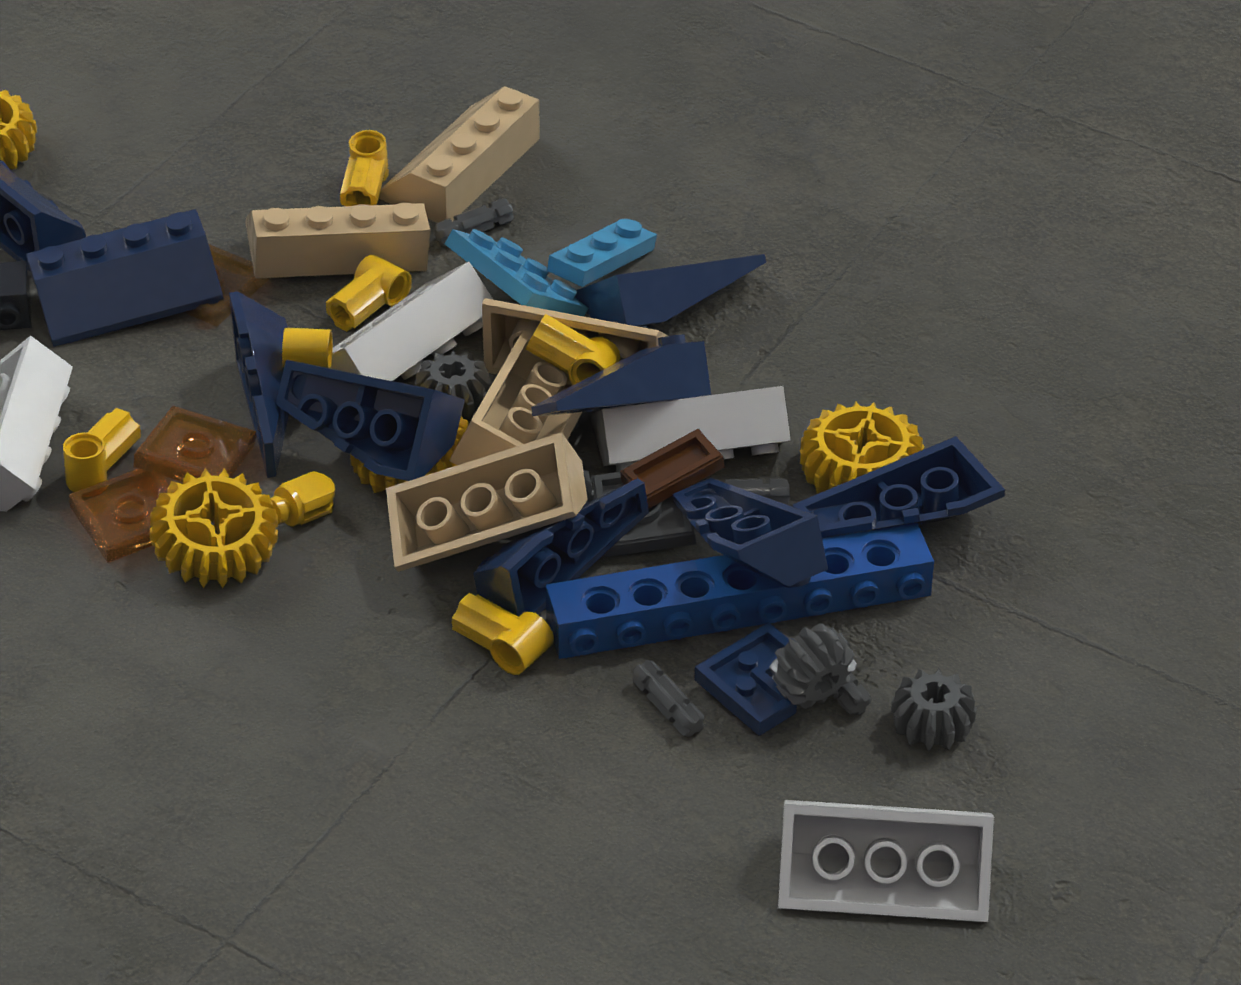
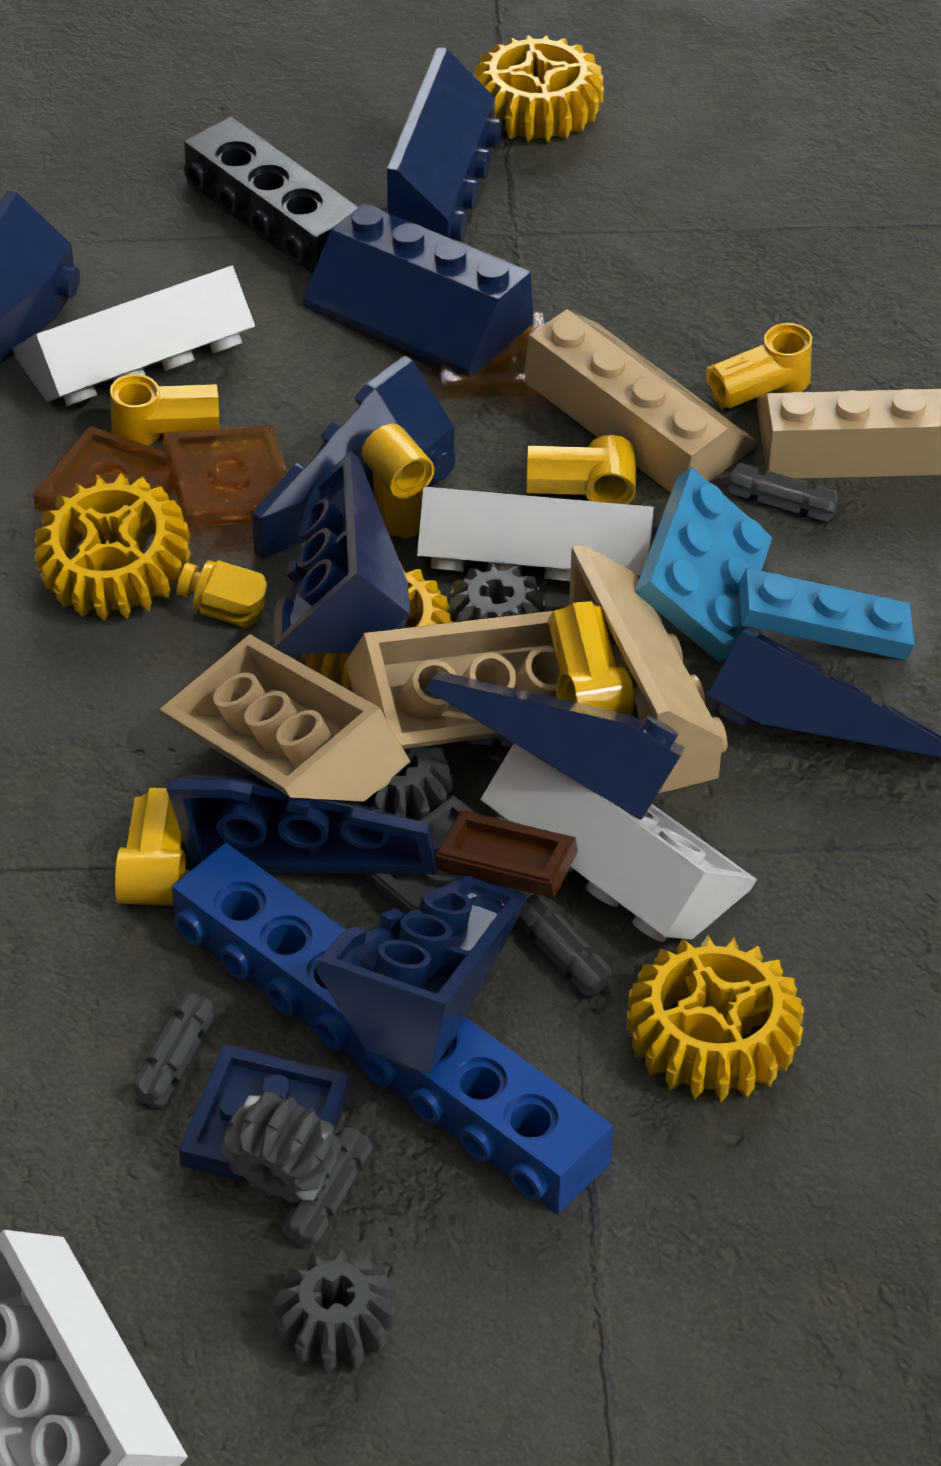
camera: 55 degrees right, 5 degrees up
(915, 489) = (651, 1091): dark blue wedge -> none

